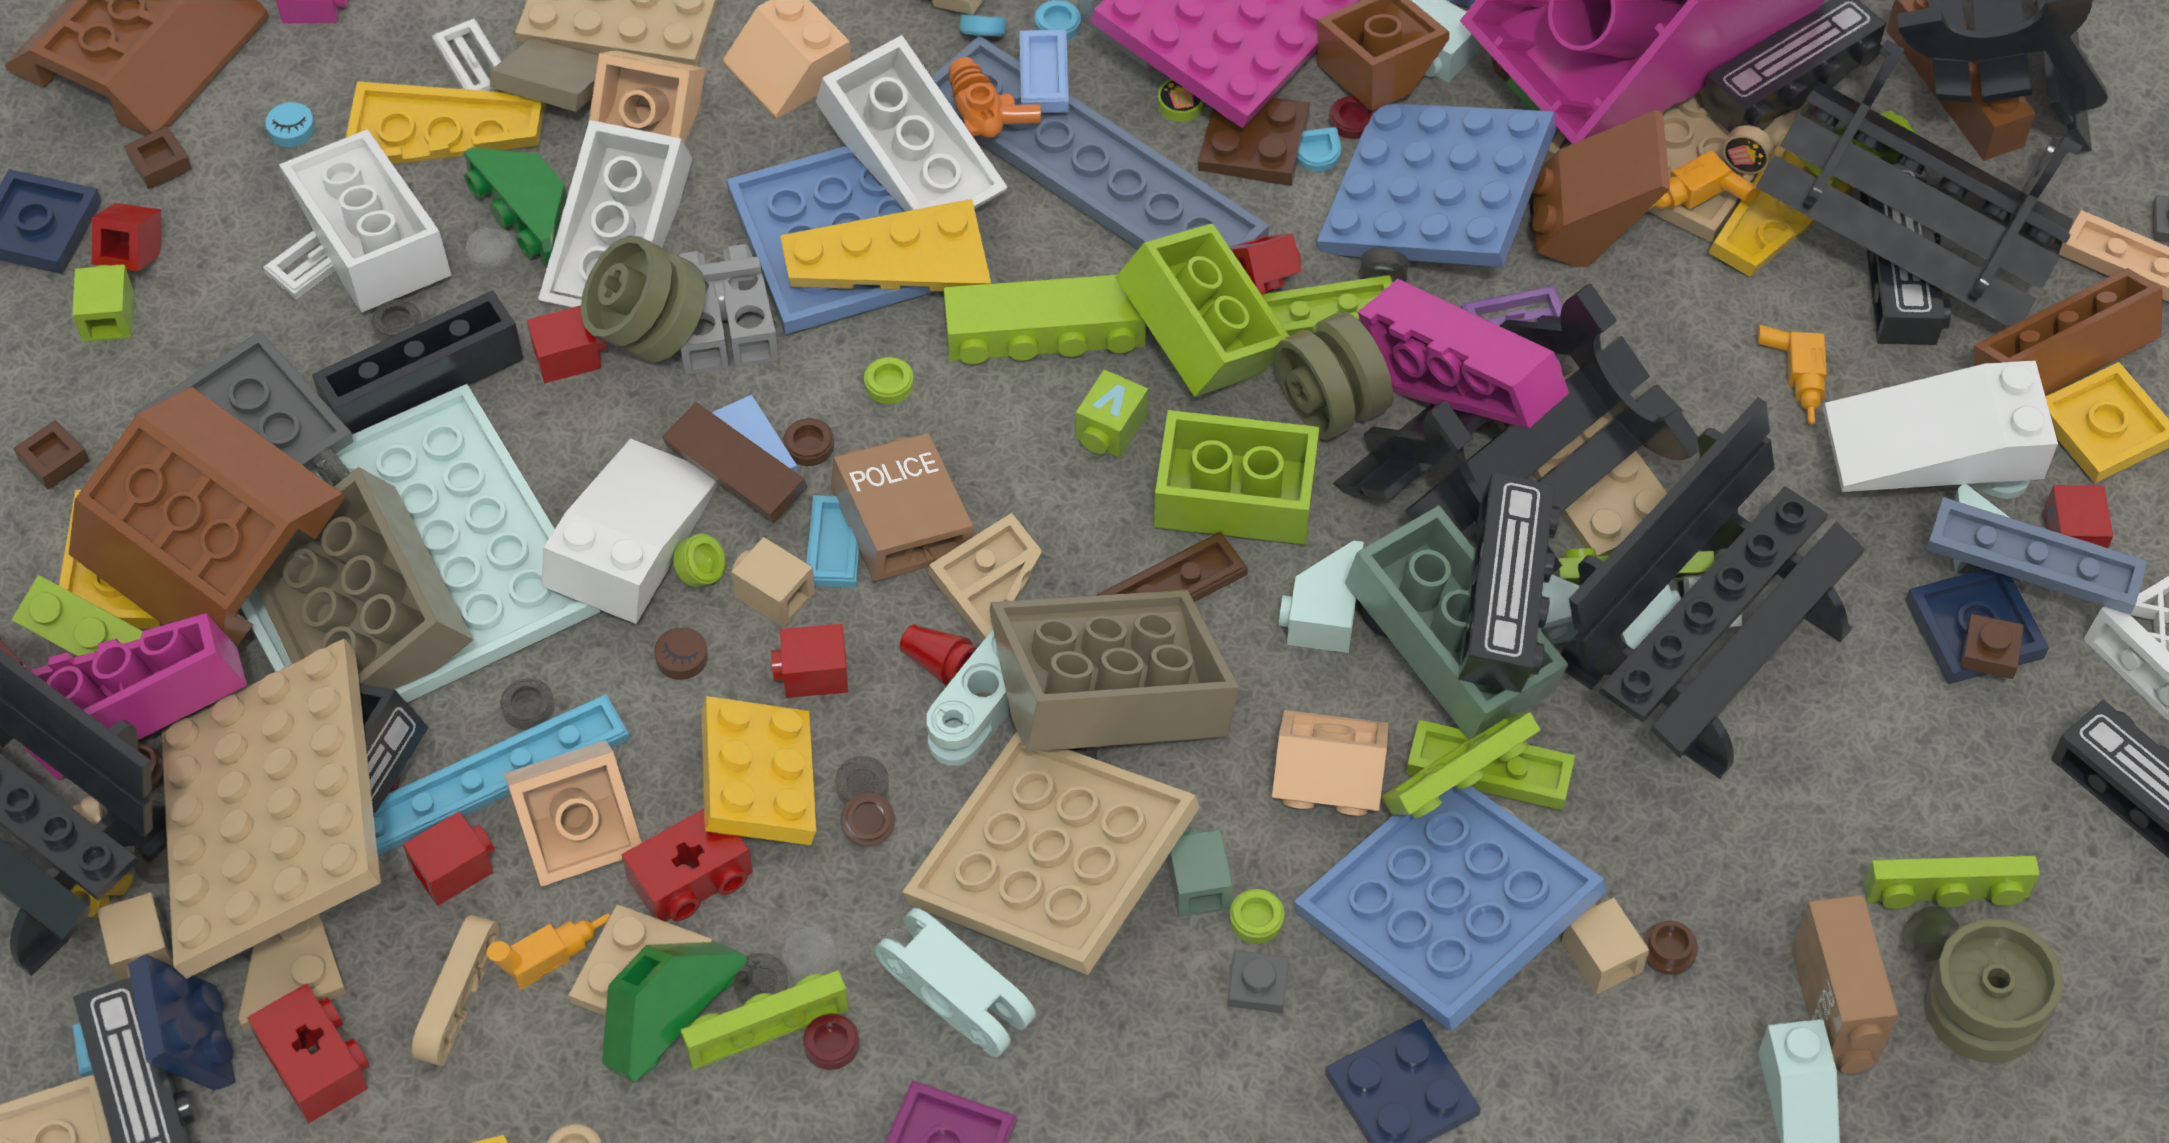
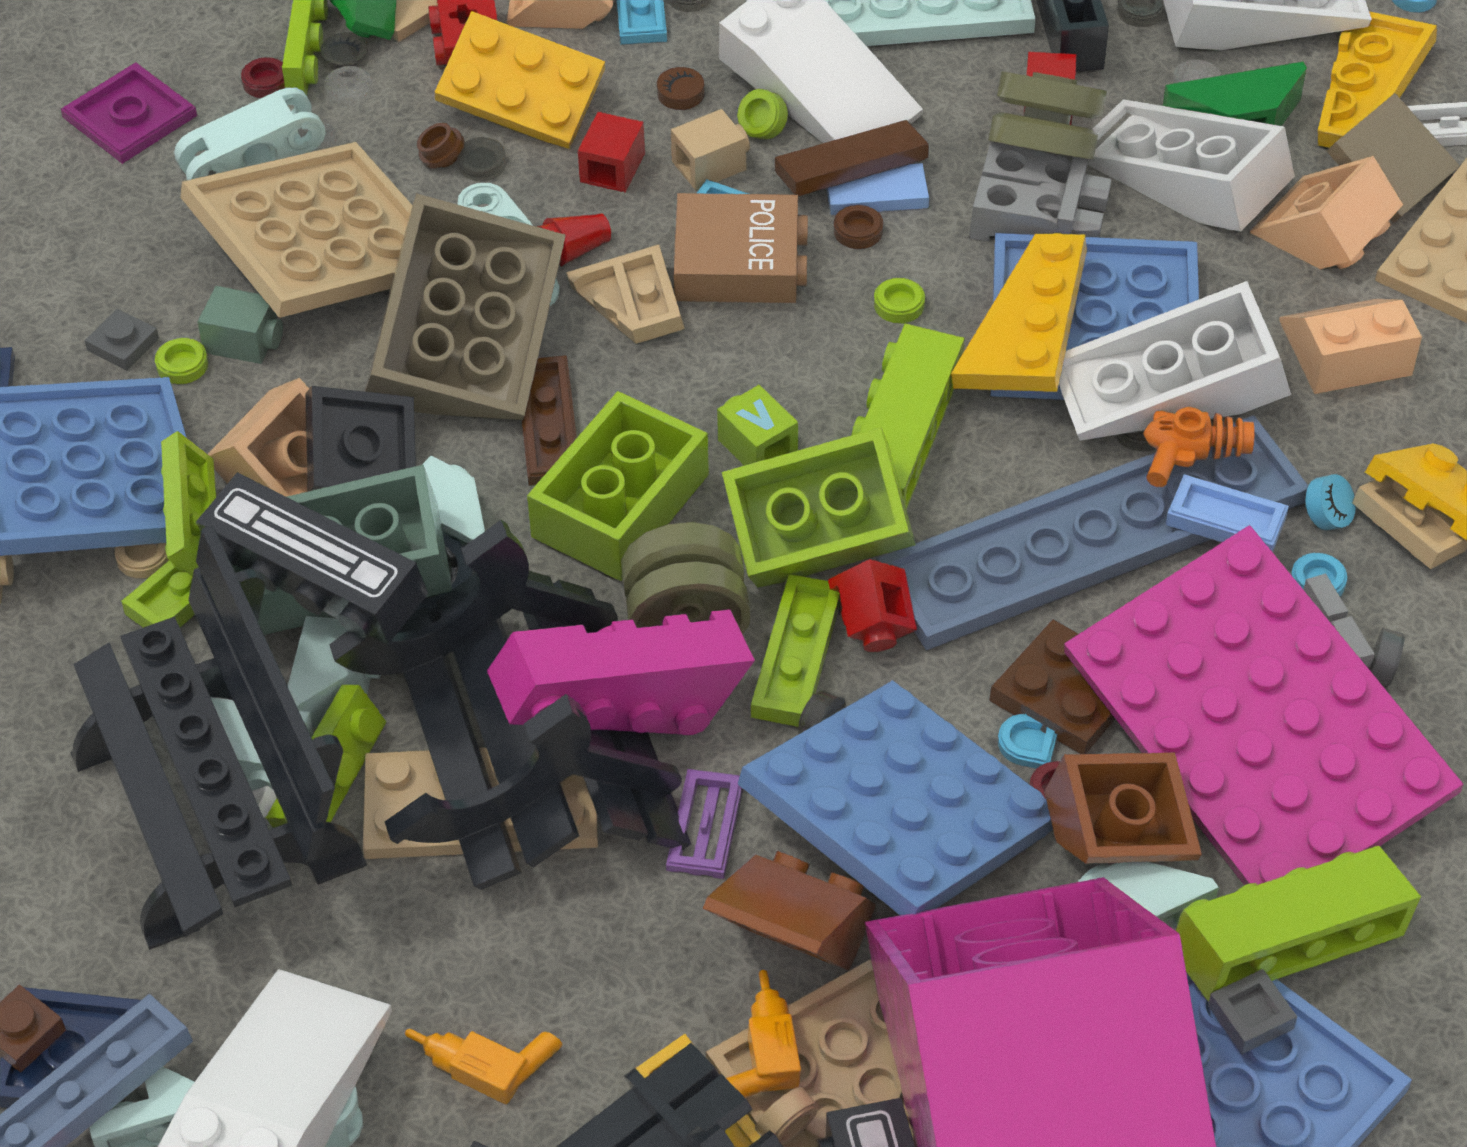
camera: 115 degrees right, 5 degrees down
(1303, 684) = (356, 435): none -> black plate

